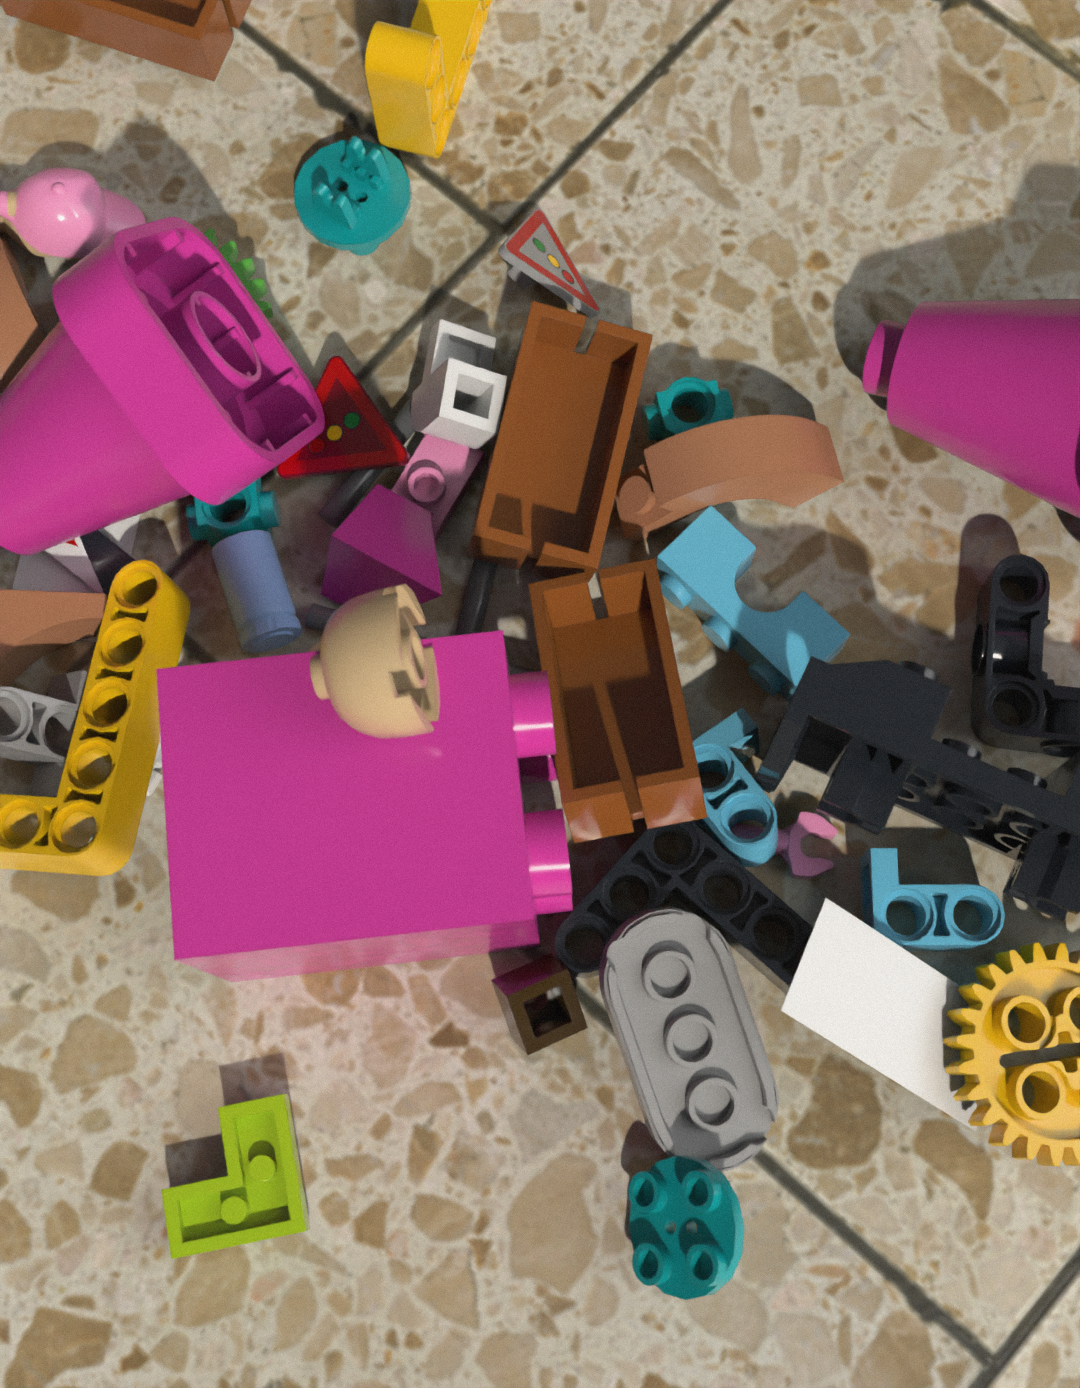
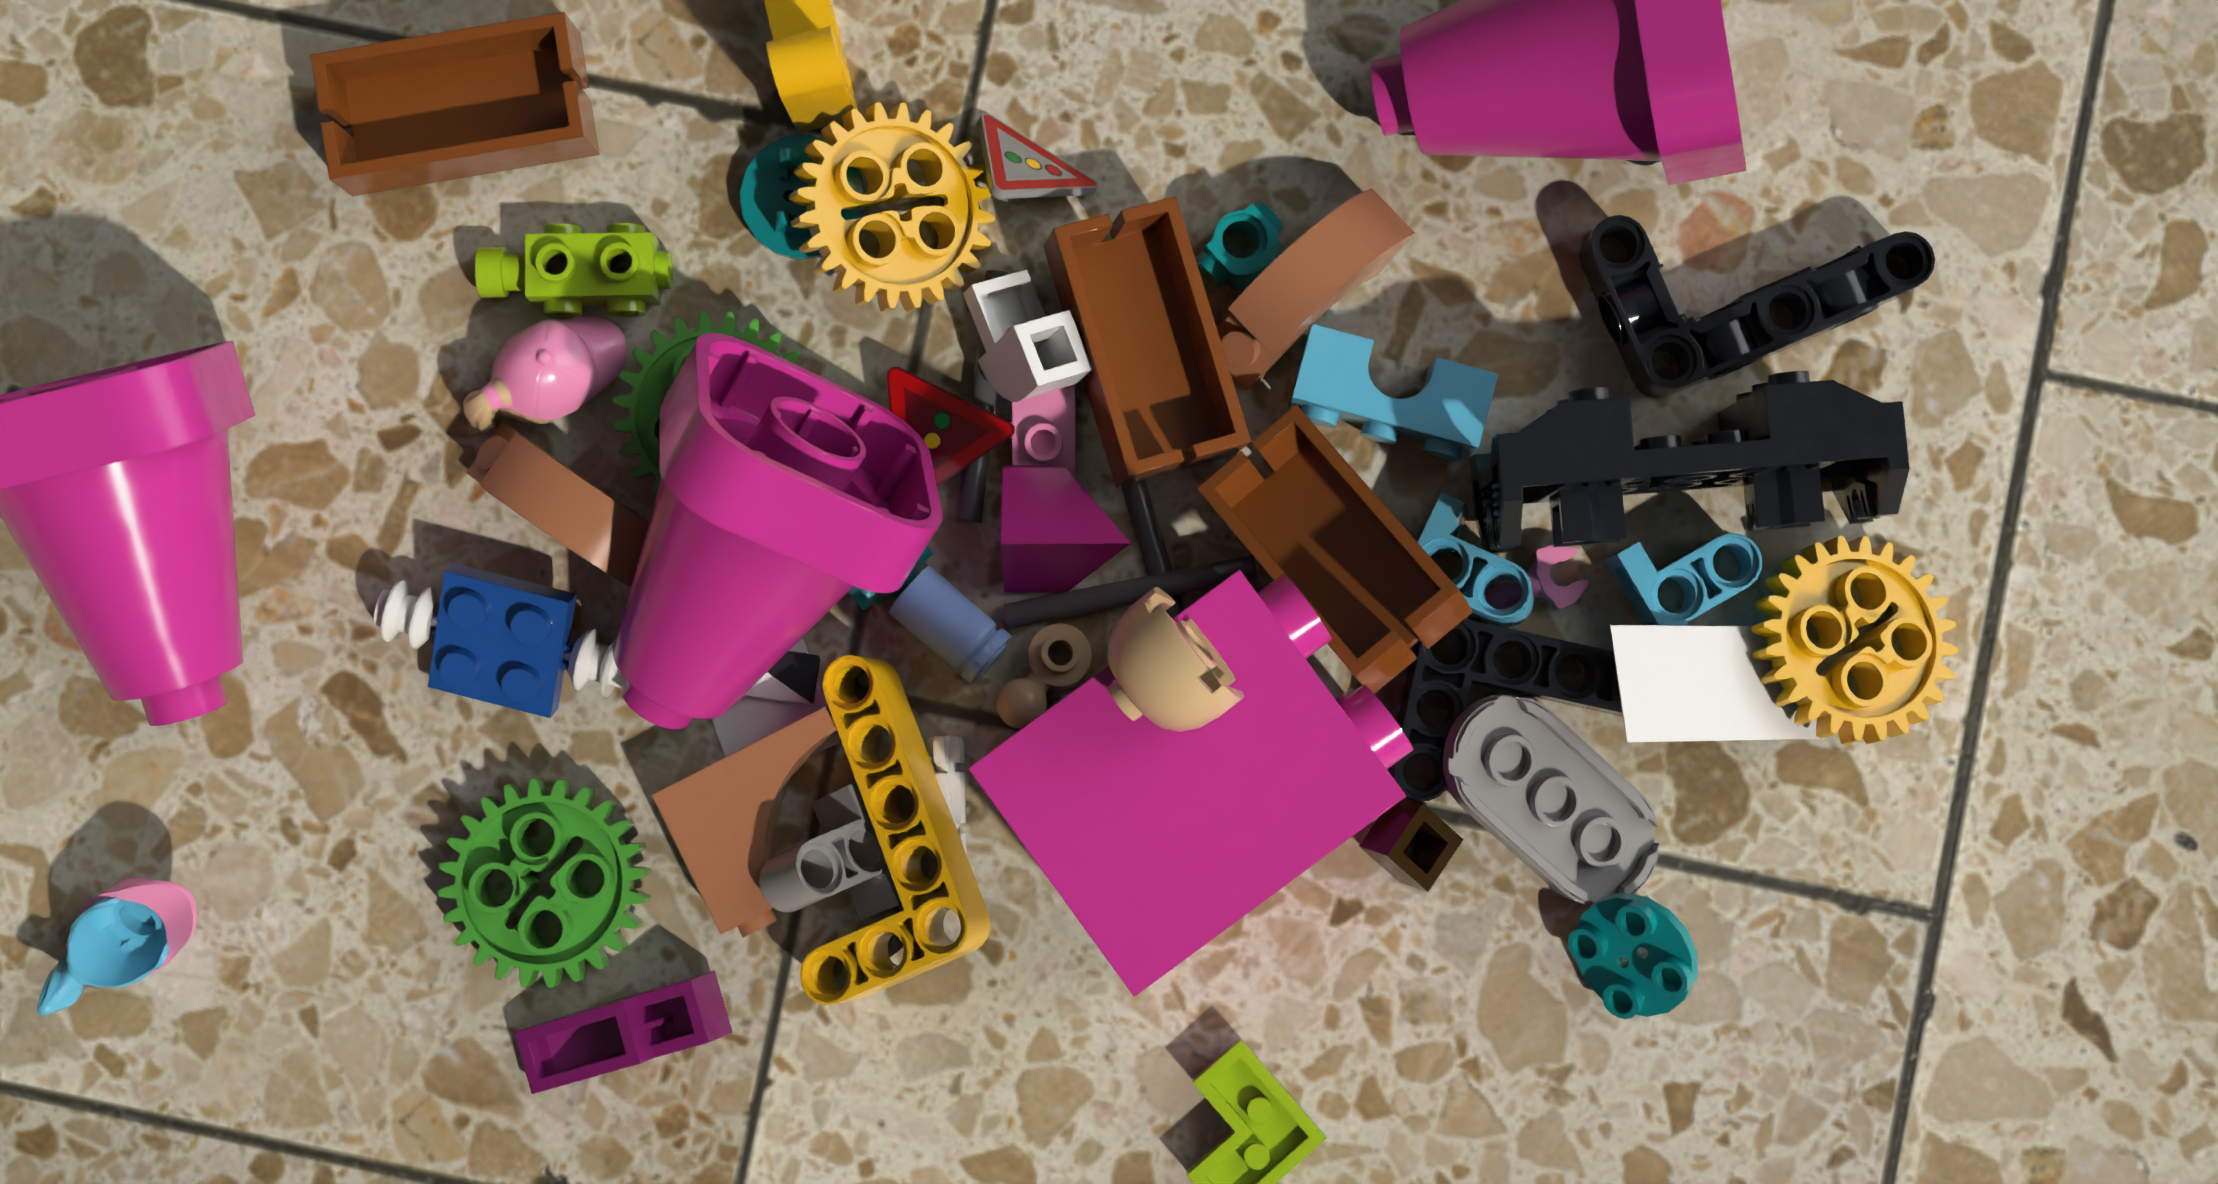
camera: 30 degrees left, 10 degrees up
(130, 150) = (587, 274): none -> lime brick
(432, 181) = (881, 151): none -> yellow gear

